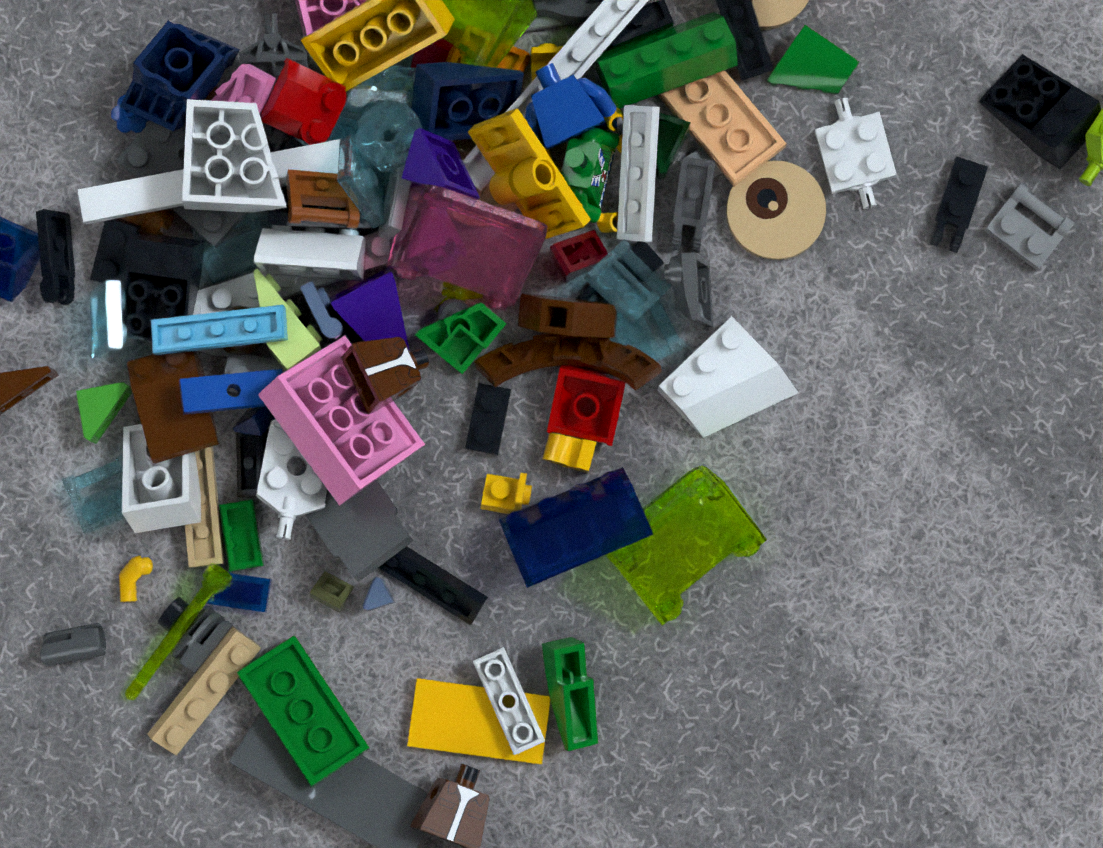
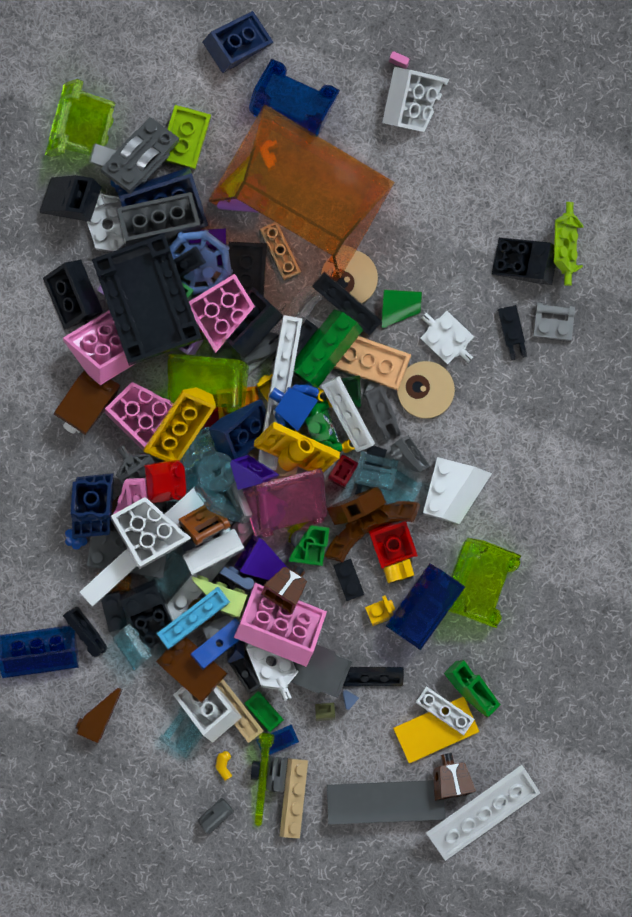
camera: 30 degrees left, 0 degrees up
(100, 406) = (155, 691): bright green slope -> none
(303, 711) = (348, 777): green plate -> none

